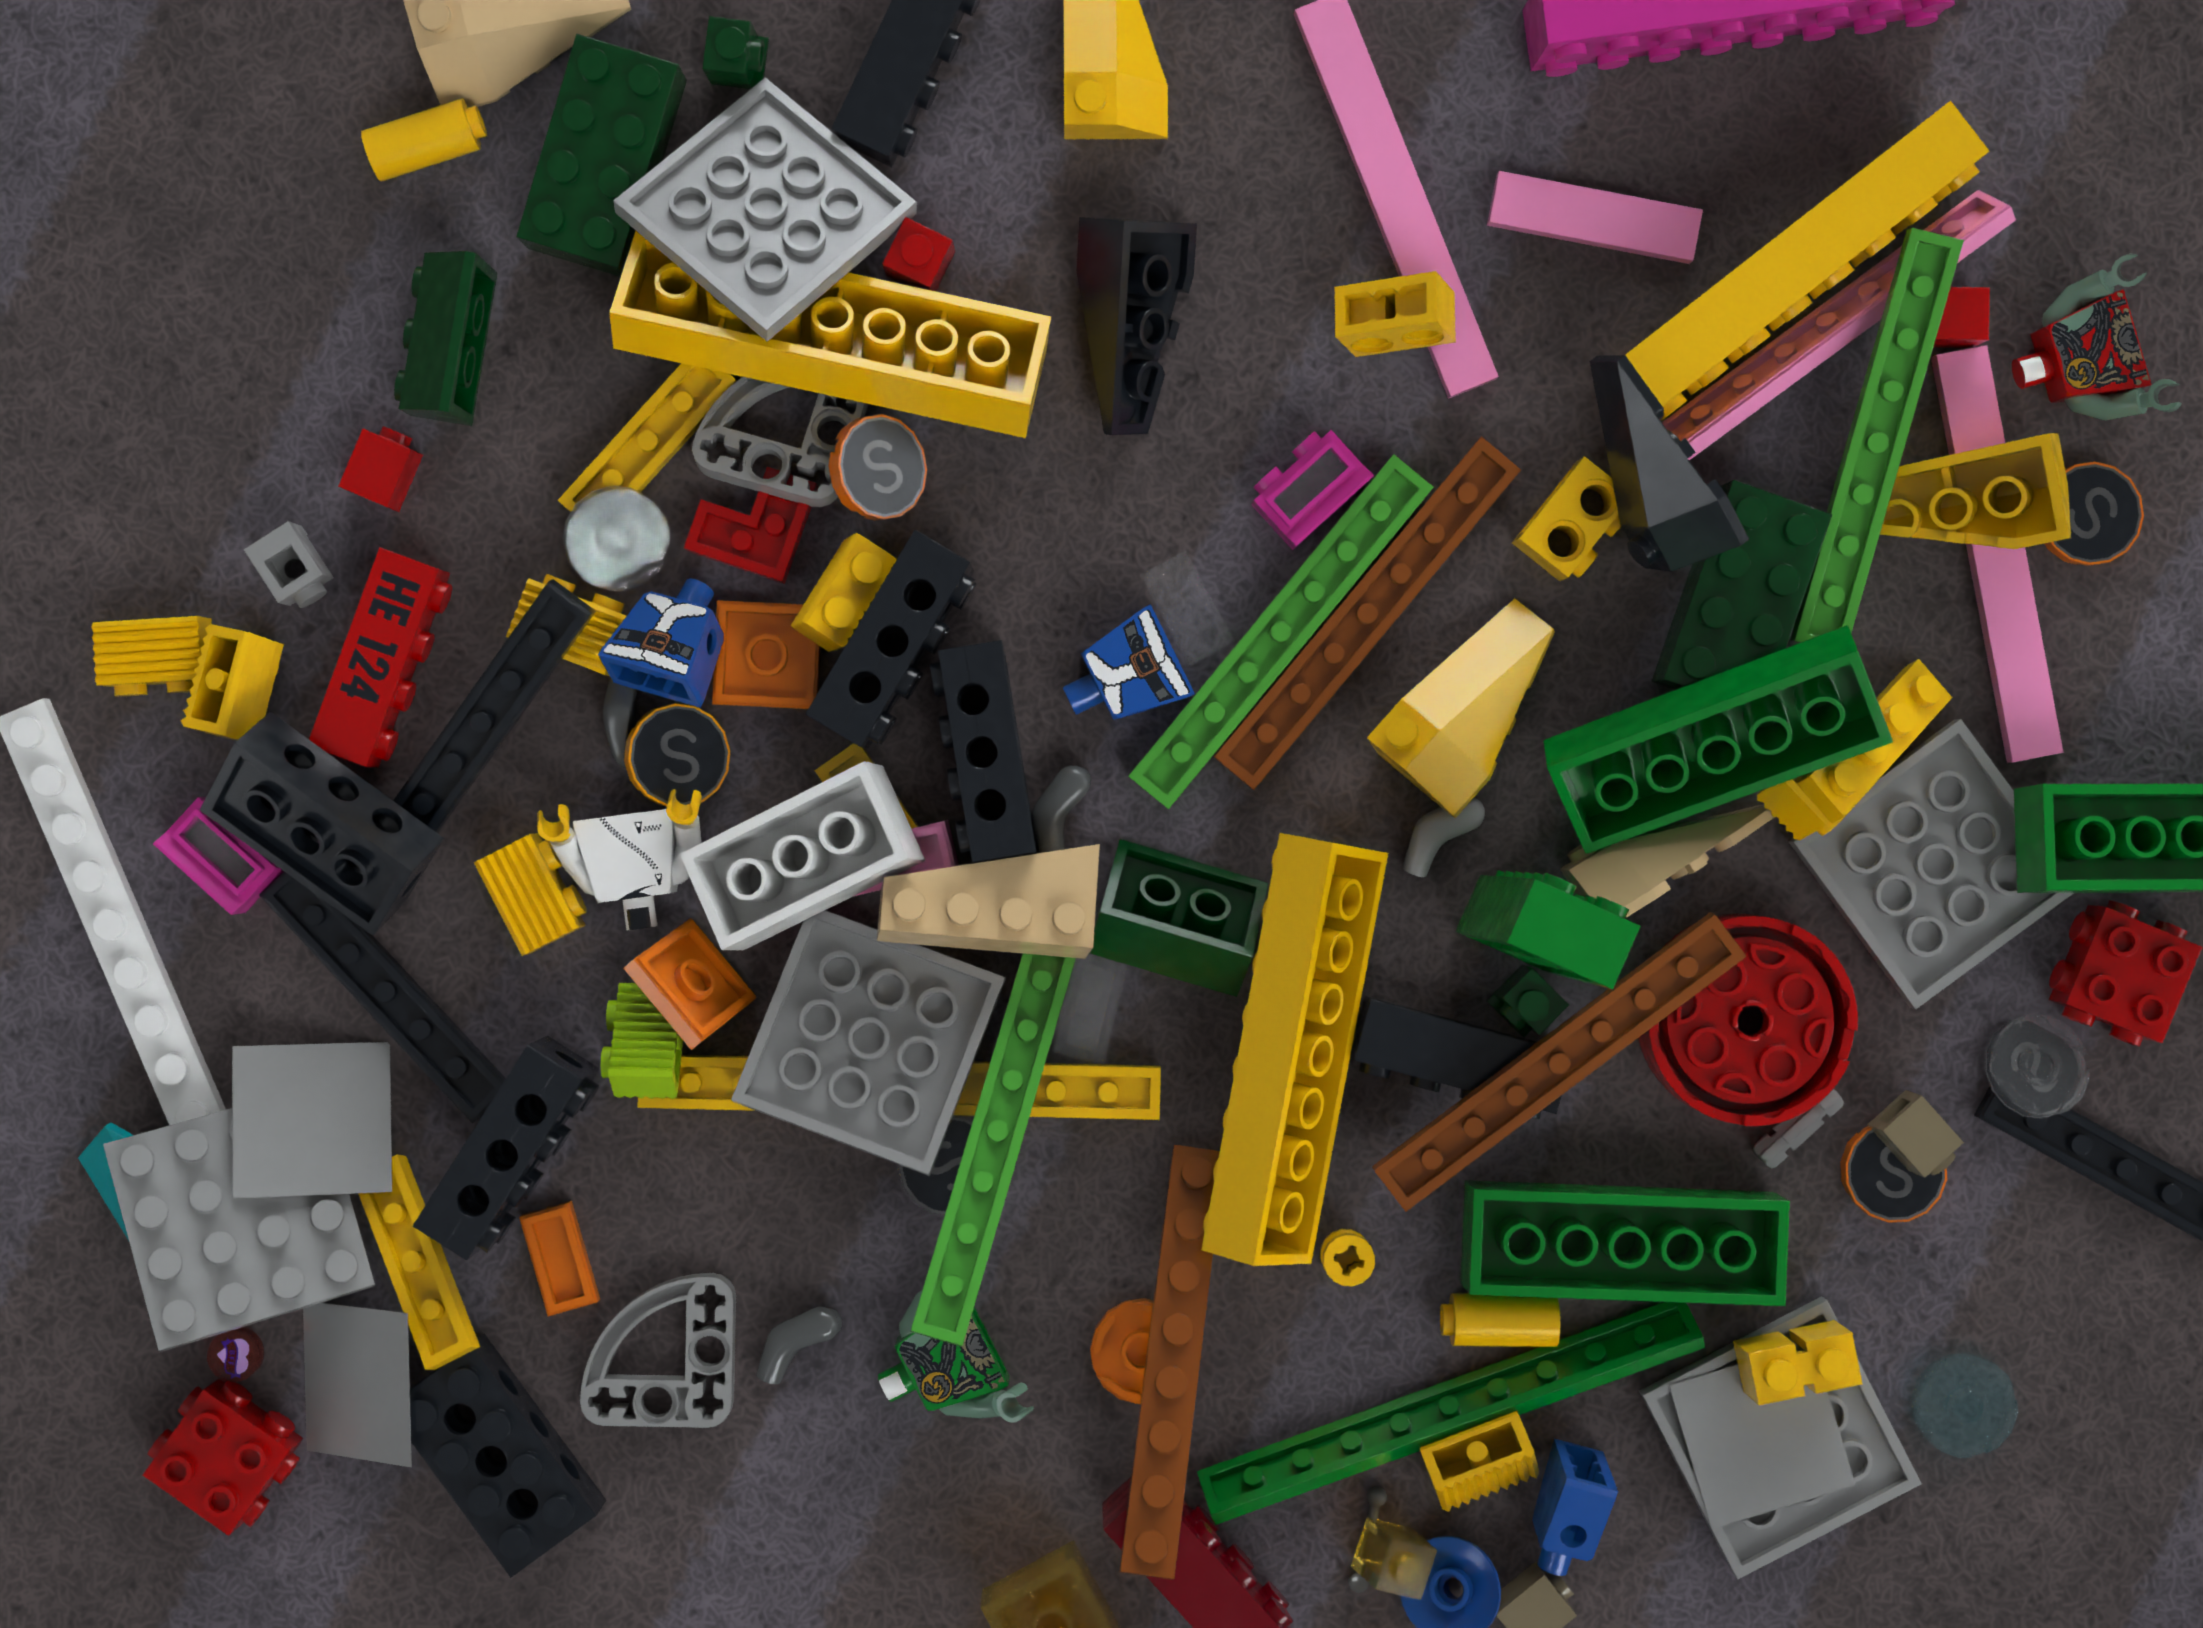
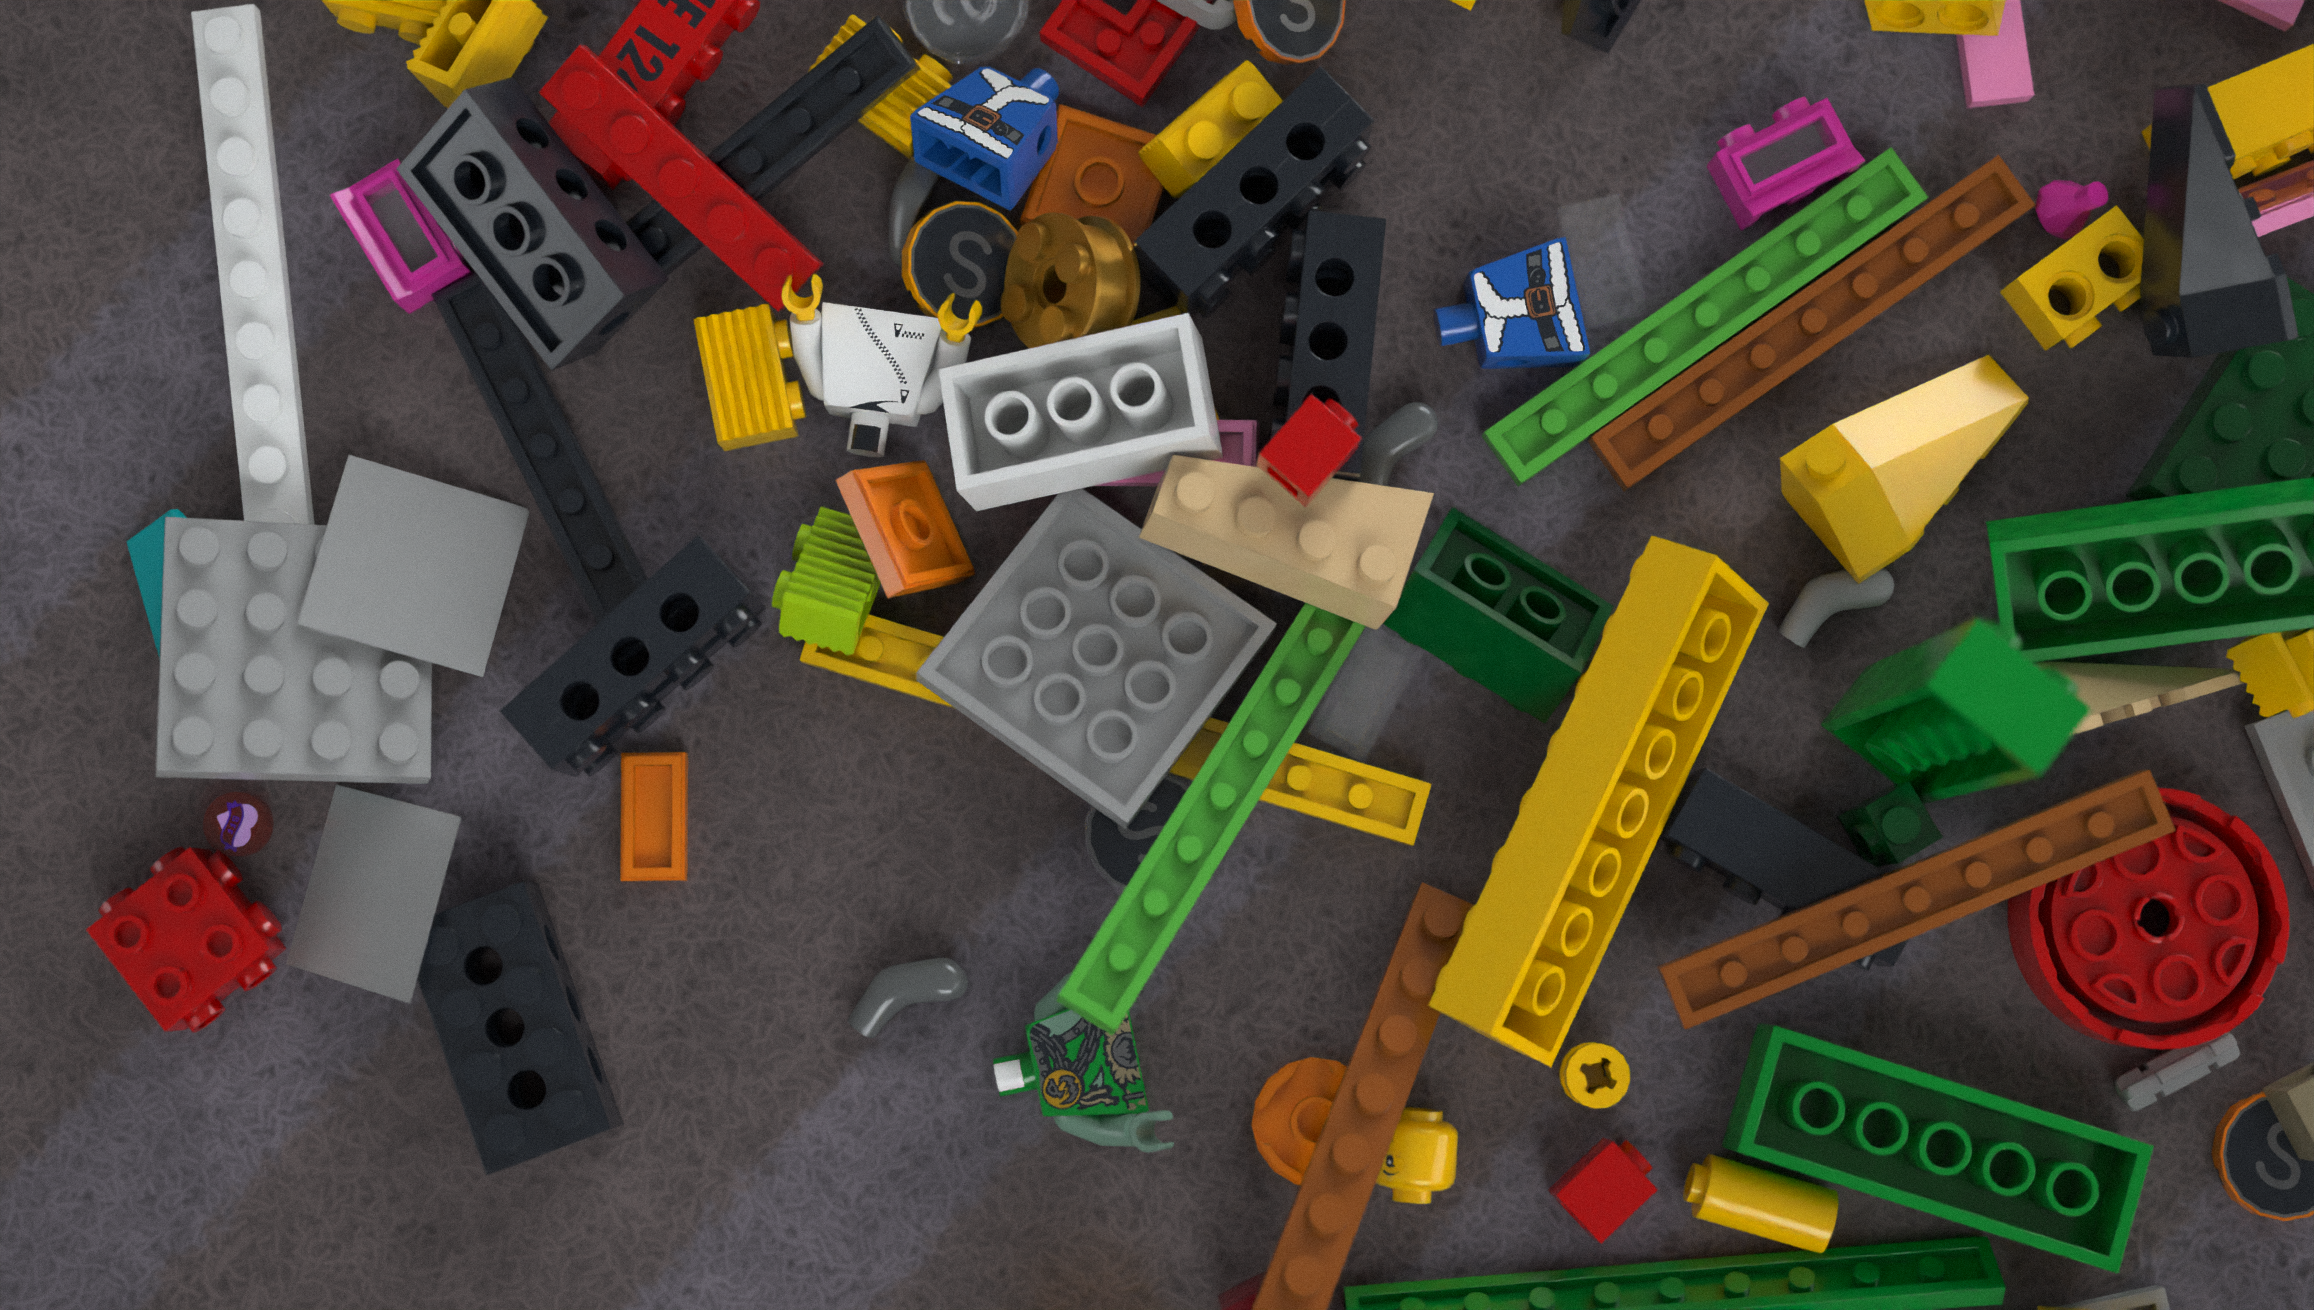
camera: 15 degrees right, 5 degrees down
(419, 1271) = (487, 778): yellow plate -> none
(427, 752) = (679, 176): none -> red plate
(682, 1389) = (753, 1014): light grey beam -> none
(765, 752) = (1070, 279): none -> pearl gold wheel
(990, 848) = (1310, 448): none -> red brick
(1227, 1359) = (1420, 1156): none -> yellow head
(1377, 1342) = (1605, 1187): none -> red brick
(1546, 461) = (2067, 206): none -> dark pink rock

